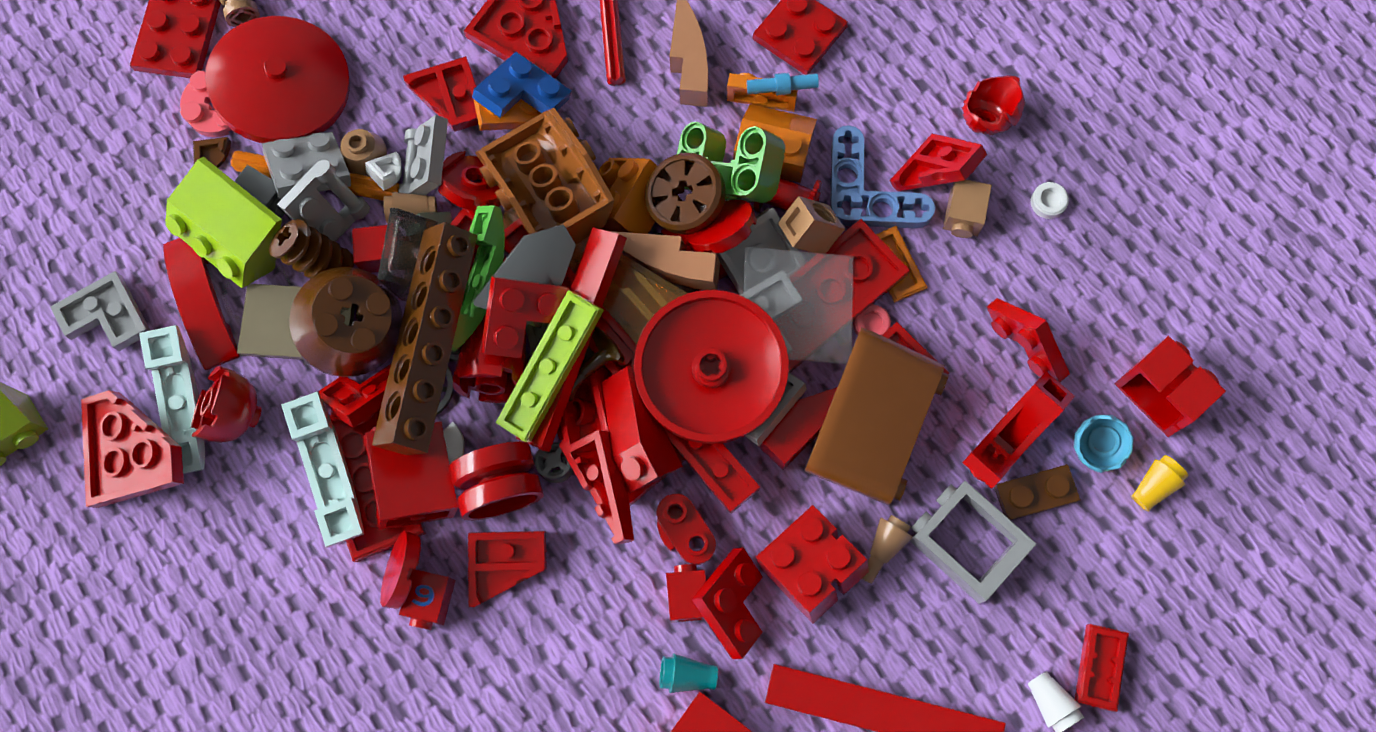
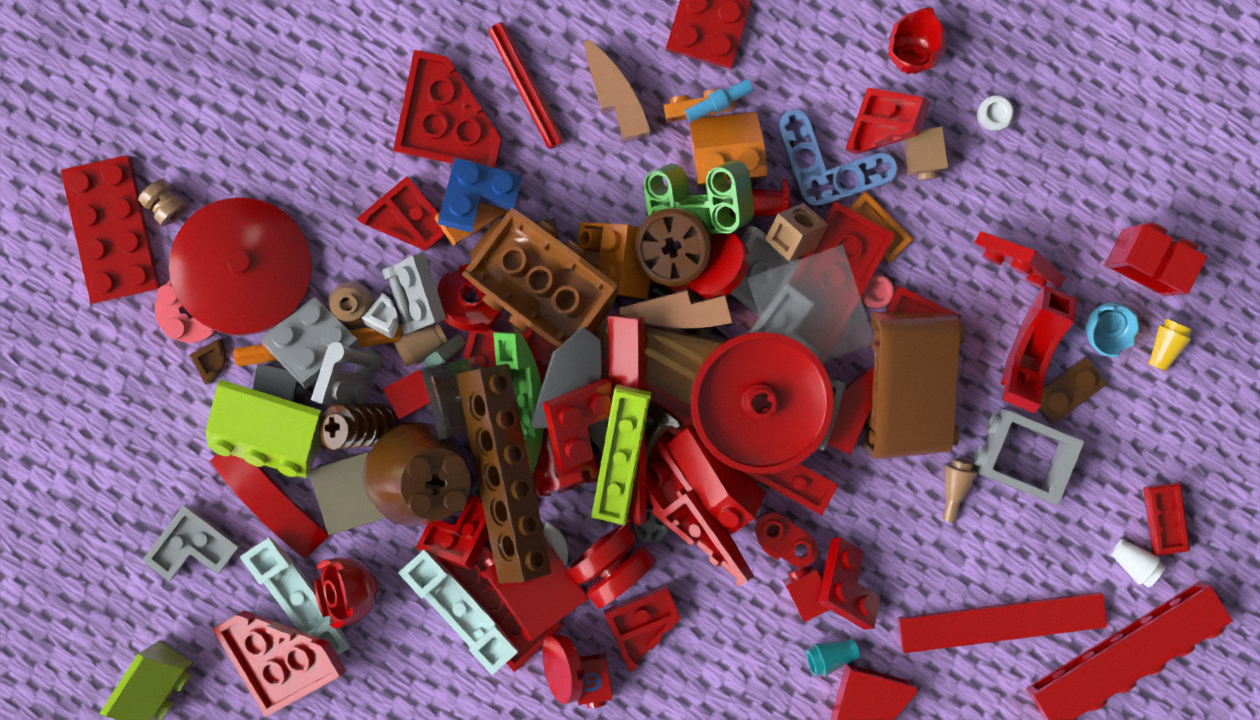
camera: 25 degrees left, 15 degrees up
(808, 560) = (903, 530): red piece -> none

